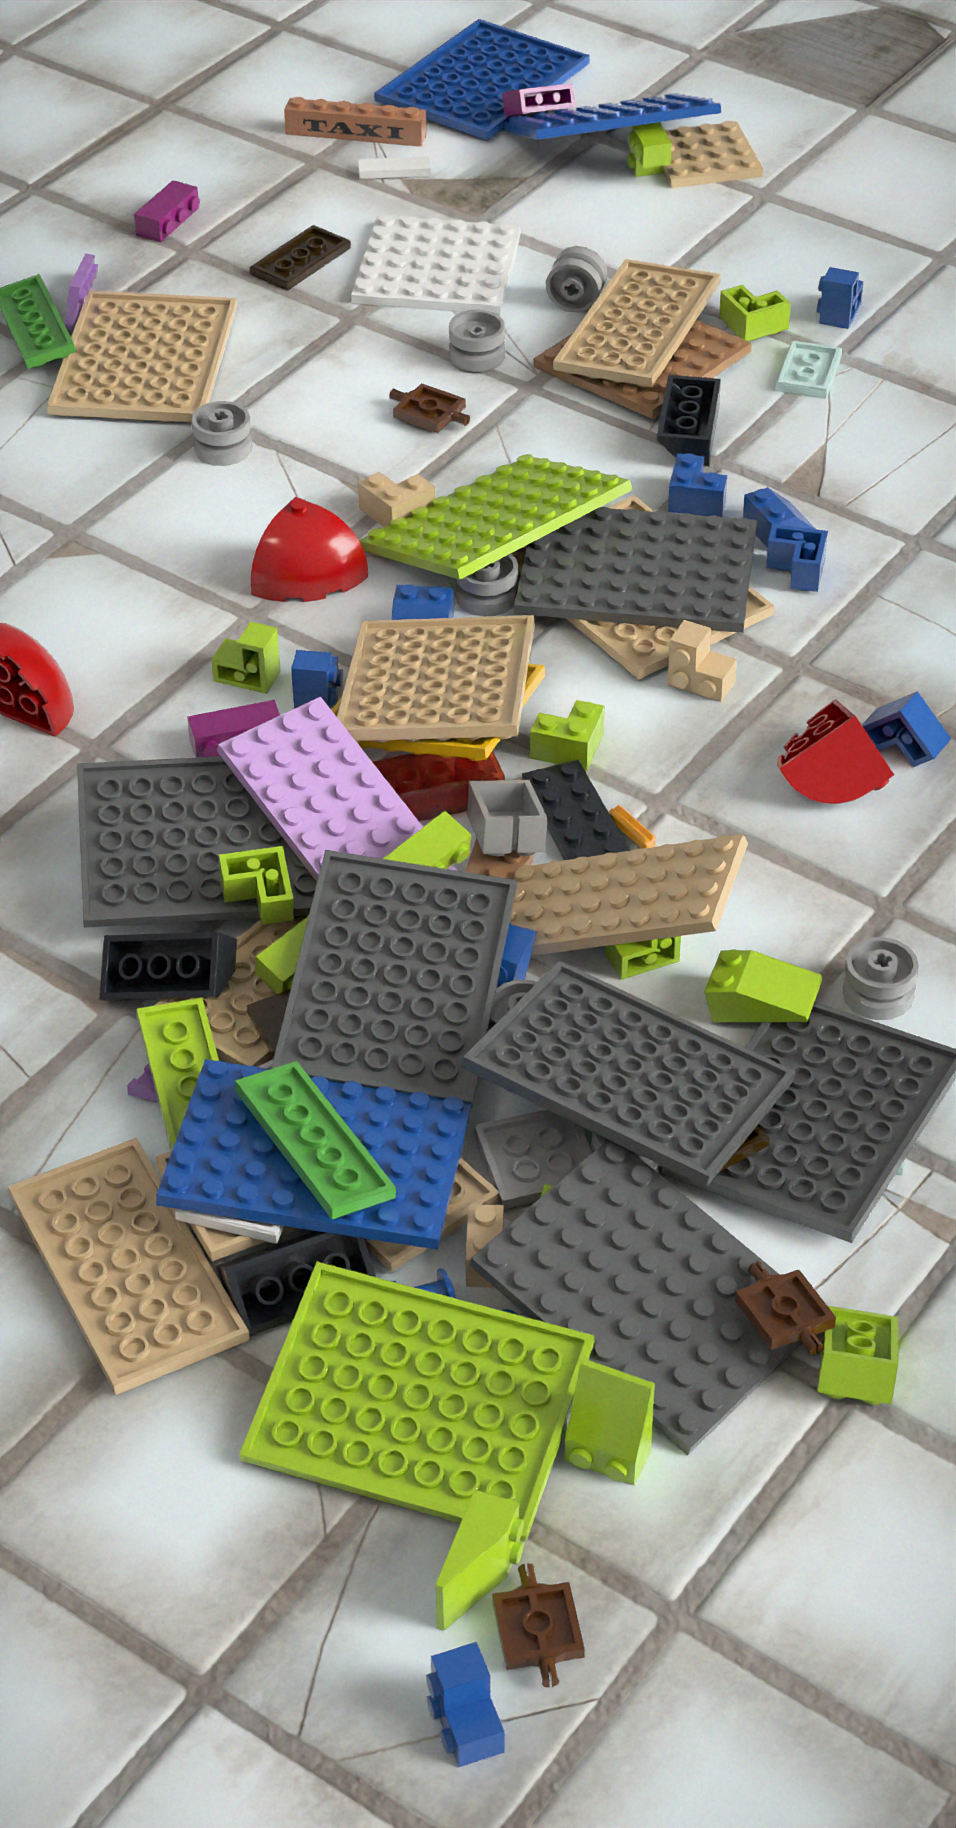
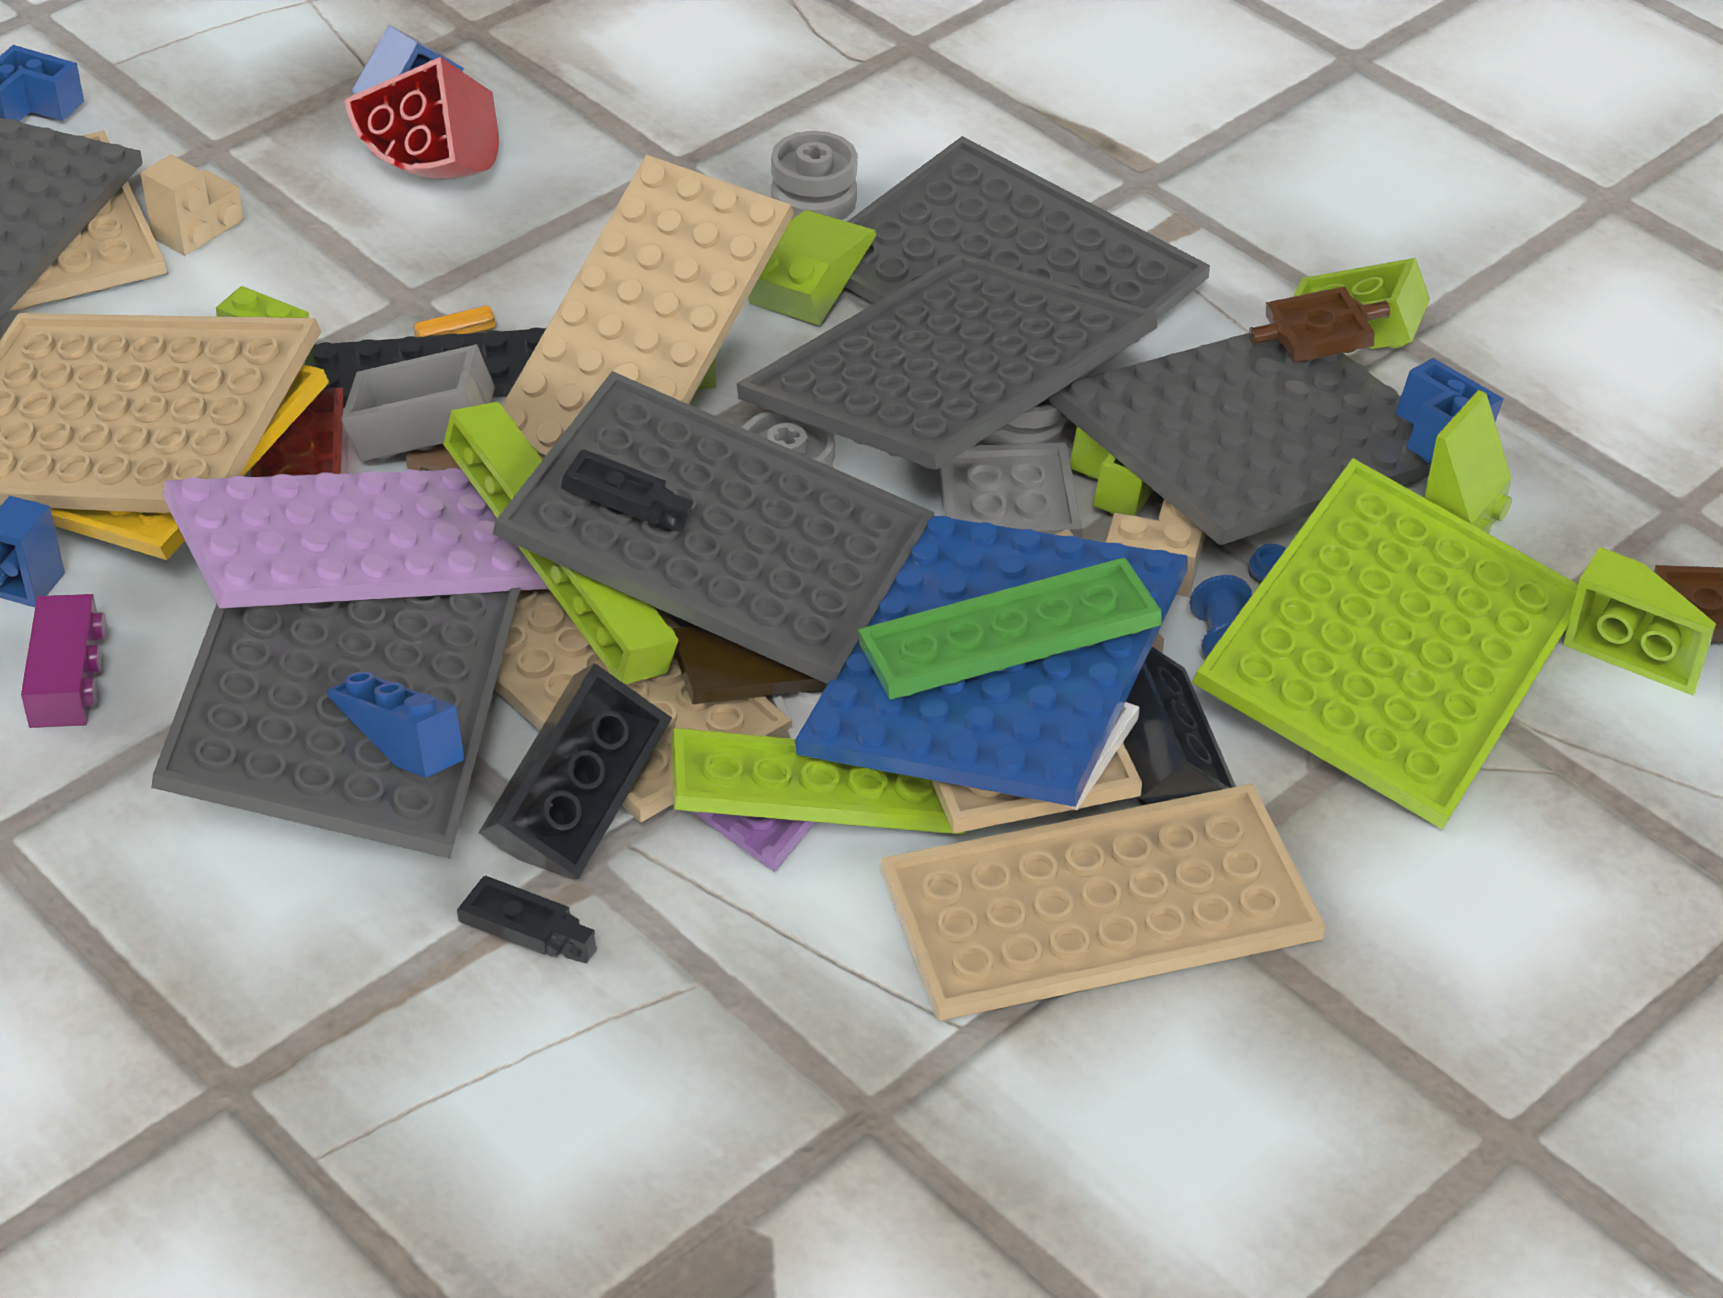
camera: 80 degrees left, 0 degrees up
(58, 982) = (526, 920): none -> black hinge
(160, 863) = (402, 723): none -> blue slope
(260, 876) = (486, 619): lime brick -> none
(379, 906) = (626, 490): none -> black hinge
(686, 1406) = (1432, 399): none -> blue brick

